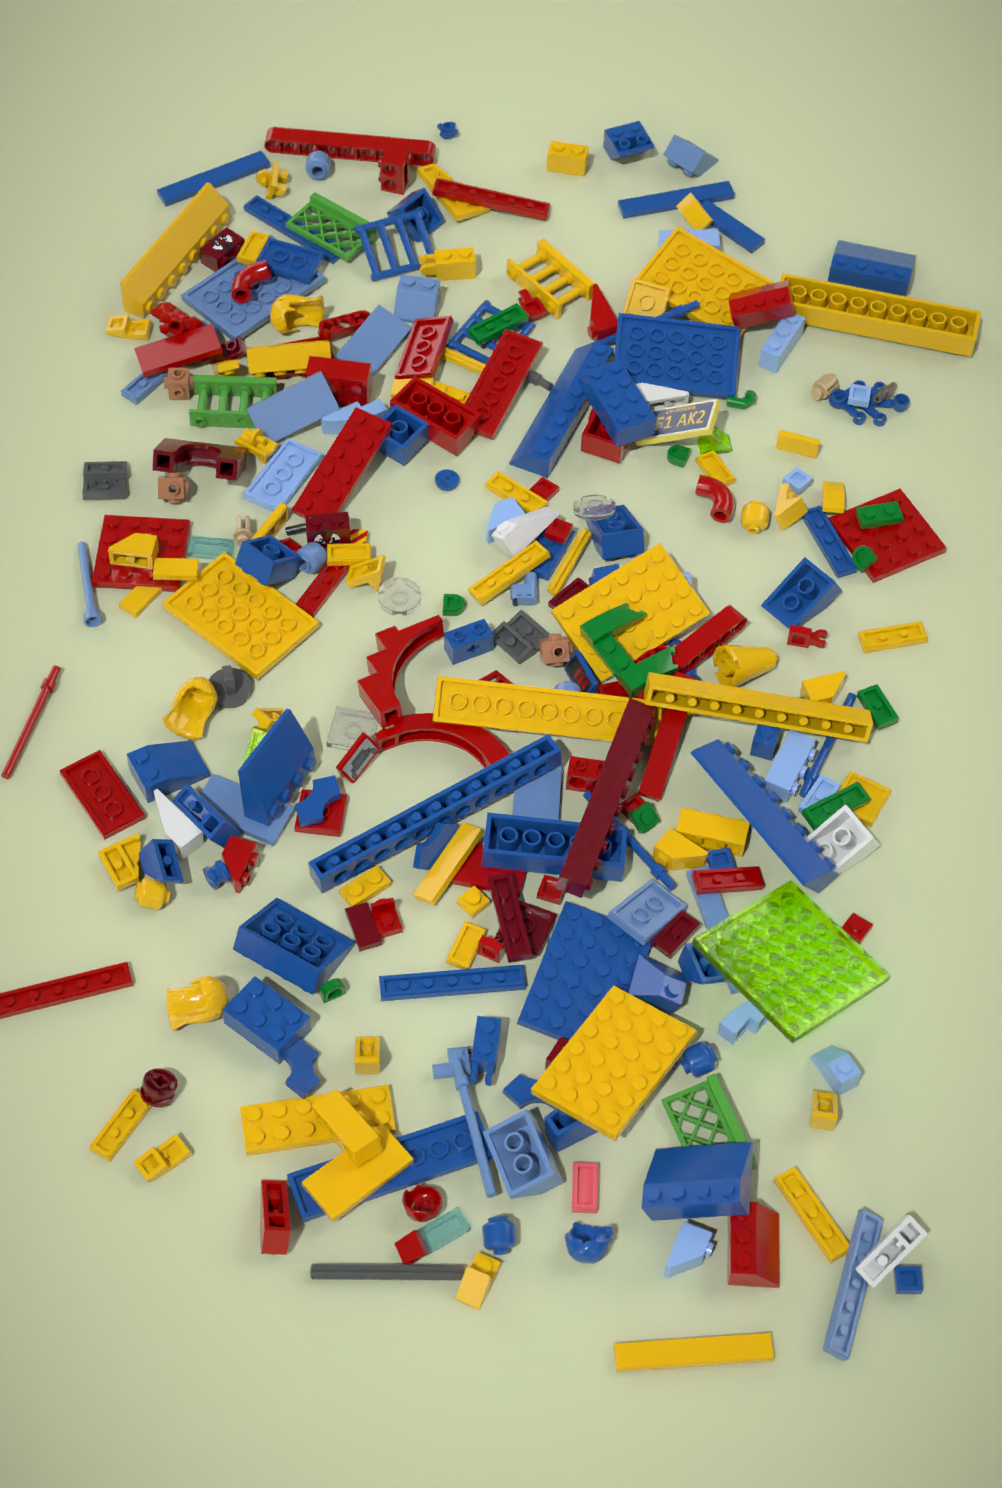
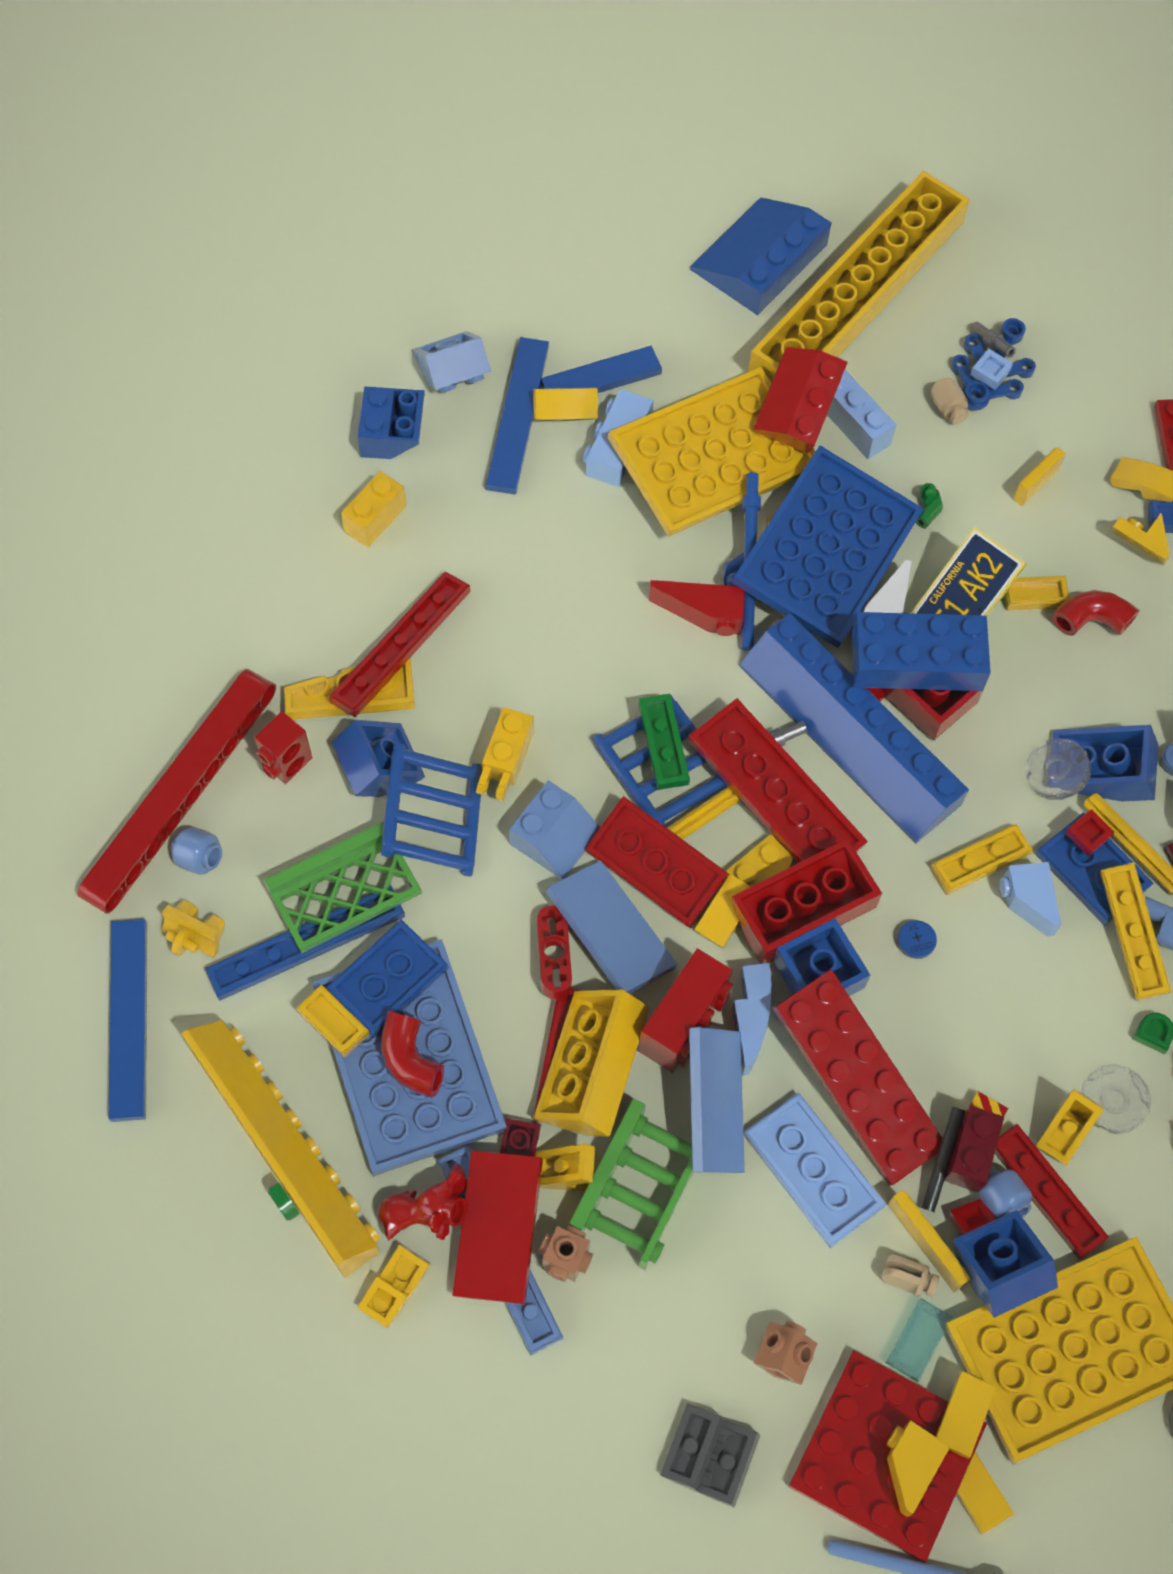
camera: 65 degrees left, 10 degrees up
(173, 453) = (760, 1240): dark red arch -> none
(221, 249) = (305, 1069): dark red brick -> none
(257, 444) = (748, 1184): yellow hips -> none
(296, 310) = (493, 1017): yellow piece -> none
(347, 554) = (1021, 1137): yellow tile -> none
(447, 130) = (221, 646): blue plate -> none
(520, 531) = (1073, 873): white slope -> none
(531, 306) = (639, 683): red plate -> none
(545, 489) = (987, 818): red tile -> none
(555, 263) = (601, 606): yellow fence -> none
(646, 298) = (710, 535): yellow tile -> none
(678, 455) = (998, 625): green tile -> none
(755, 516) = (1147, 583): yellow head -> none
(798, 480) = (1099, 506): light blue plate -> none

